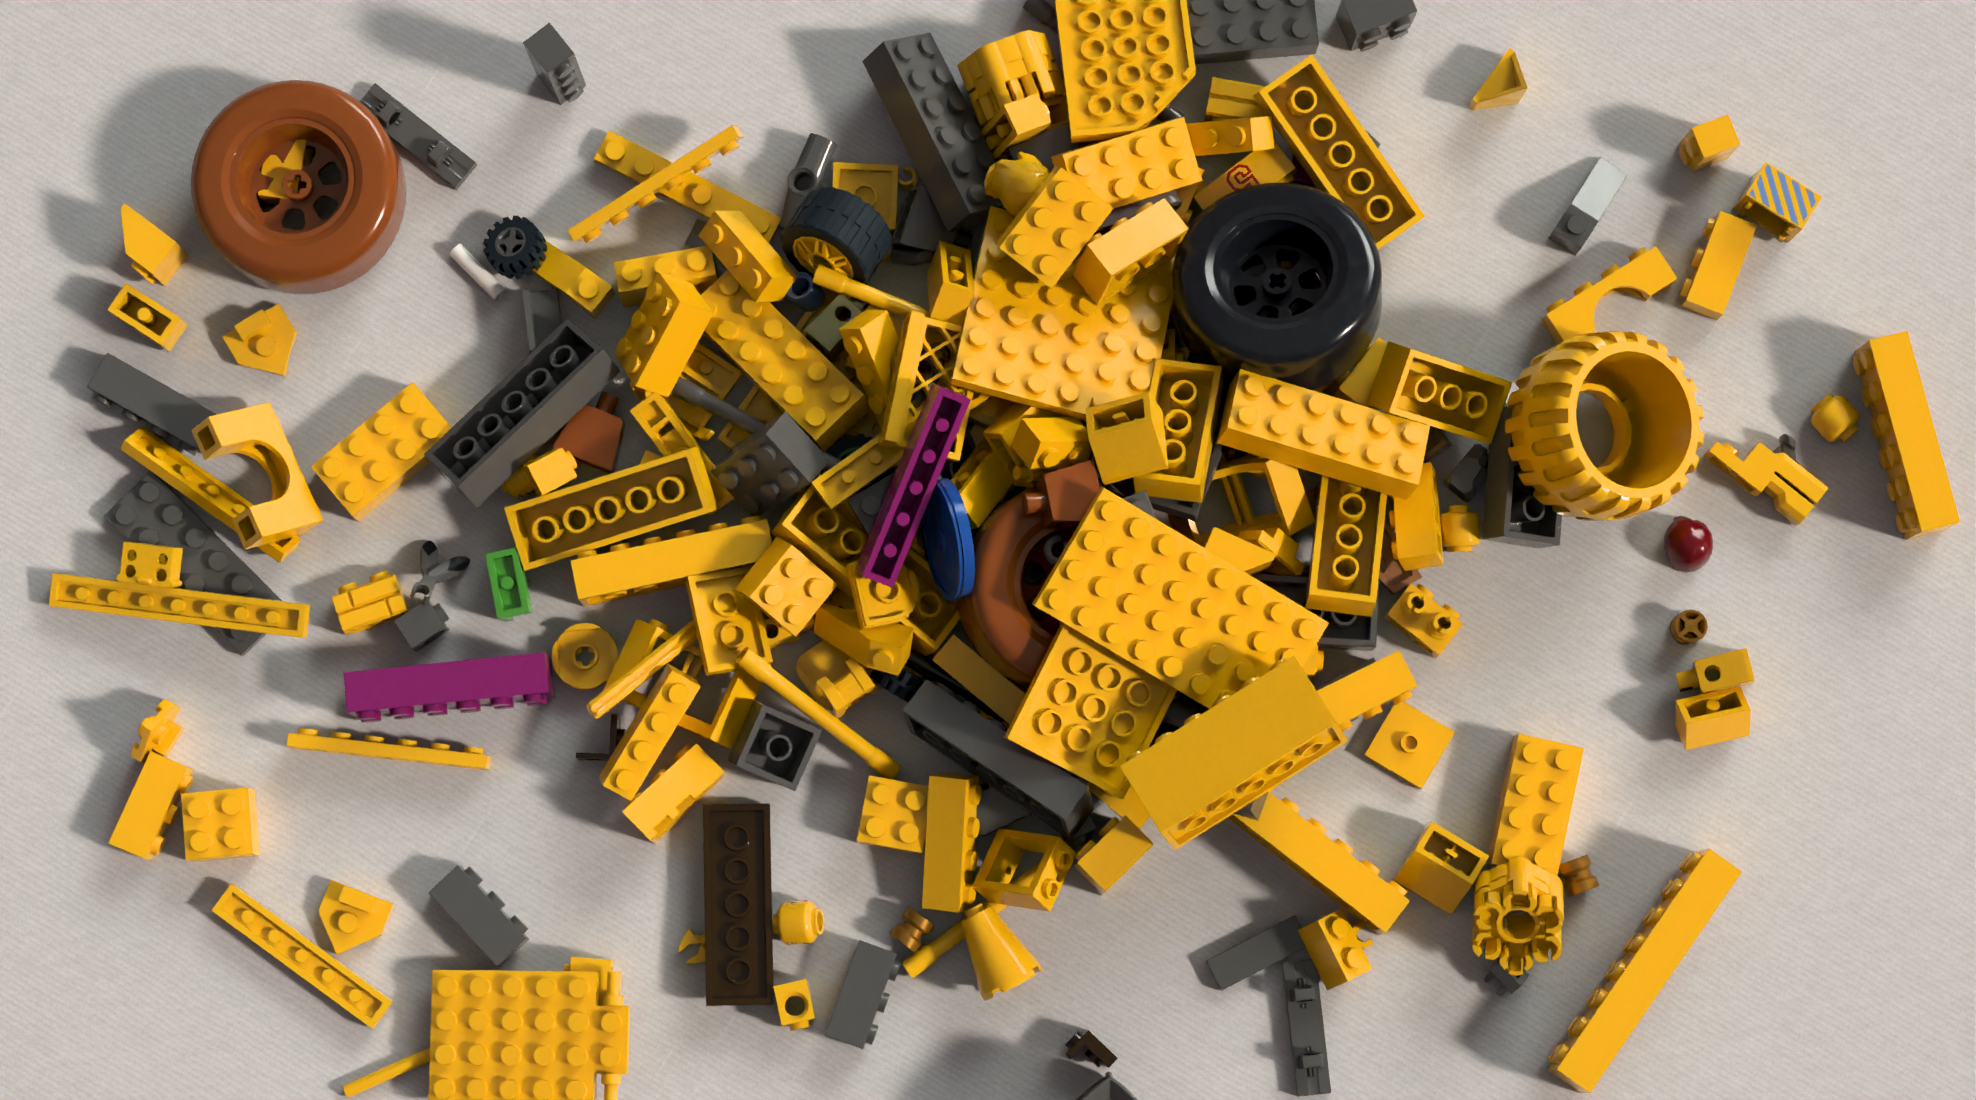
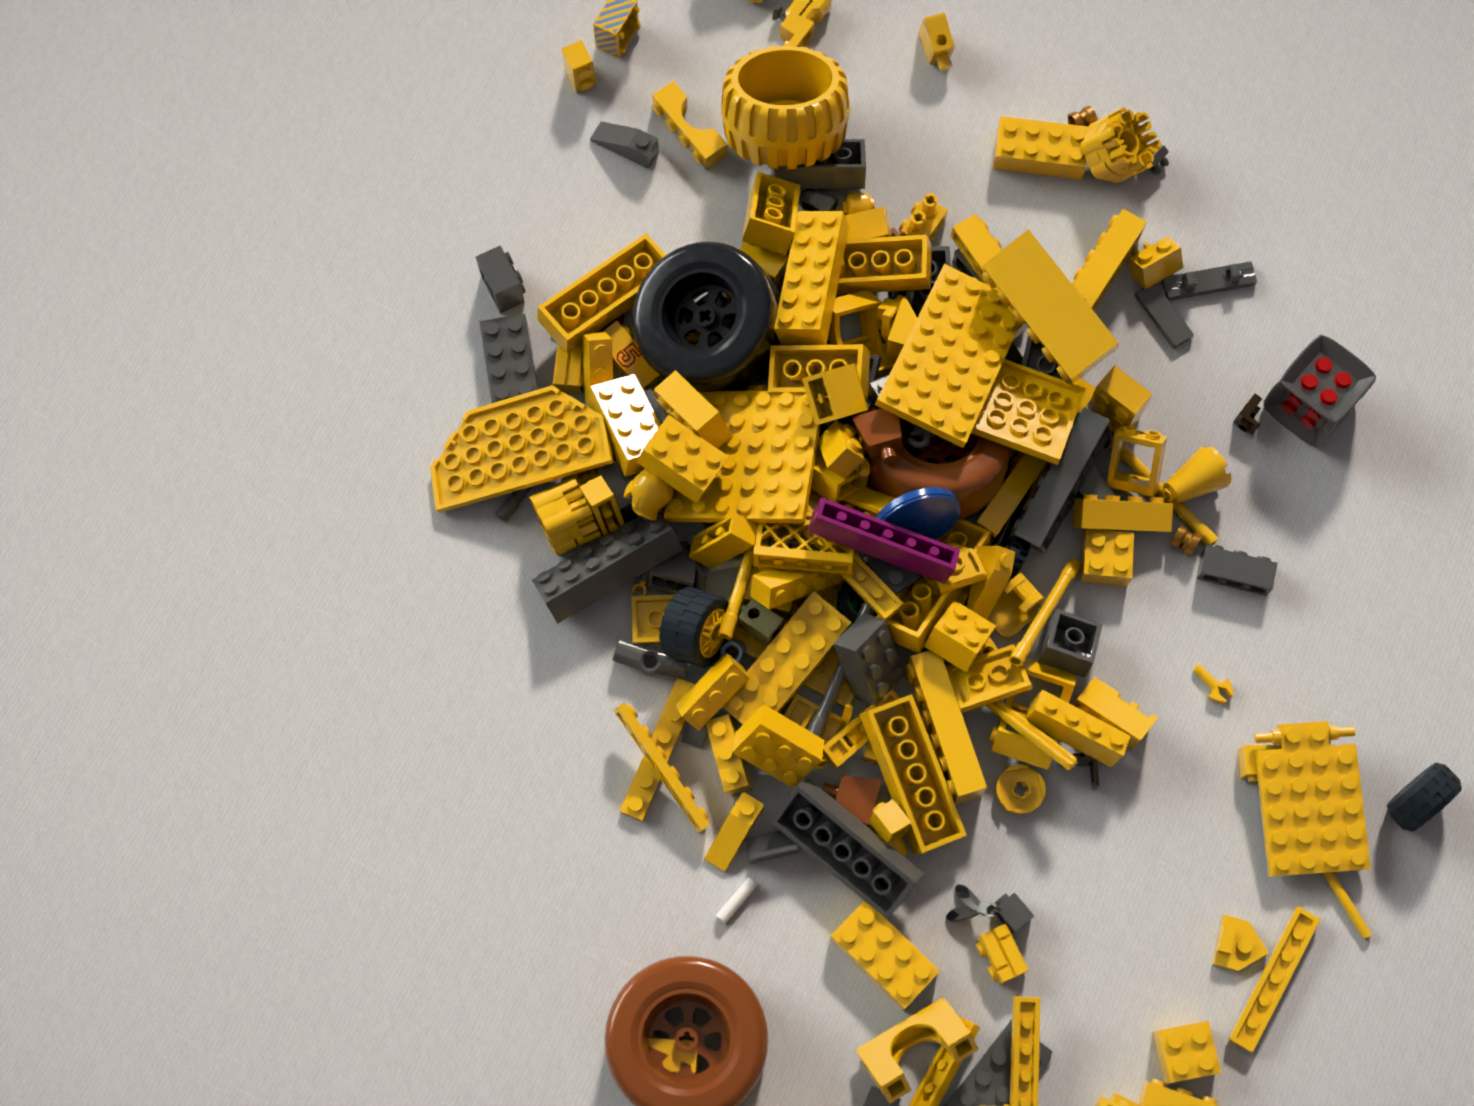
camera: 90 degrees left, 10 degrees down
(263, 341) = (806, 1062): yellow plate -> none
(374, 747) = (1110, 939): yellow plate -> none
(419, 138) = (635, 956): dark grey hinge -> none
(449, 685) = (1059, 884): magenta brick -> none
(480, 914) = (1223, 847): dark grey brick -> none
(506, 239) = (711, 877): black wheel -> none
(508, 584) = (976, 847): bright green panel -> none
(555, 64) = (578, 843): dark grey brick -> none
(738, 905) = (1187, 661): dark brown plate -> none
(783, 993) = (1243, 622): yellow brick -> none
(798, 922) = (1193, 618): yellow head -> none
(1409, 744) = (1008, 223): yellow plate -> none
(1441, 867) = (1090, 201): yellow slope -> none
(1503, 86) = (542, 198): yellow slope -> none
(1643, 970) = (1141, 73): yellow brick -> none
(1688, 544) = (854, 66): dark red hair -> none
(1693, 622) = (905, 59): pearl gold wheel -> none
(1712, 717) = (968, 44): yellow brick -> none
(1717, 265) = (660, 60): yellow brick -> none

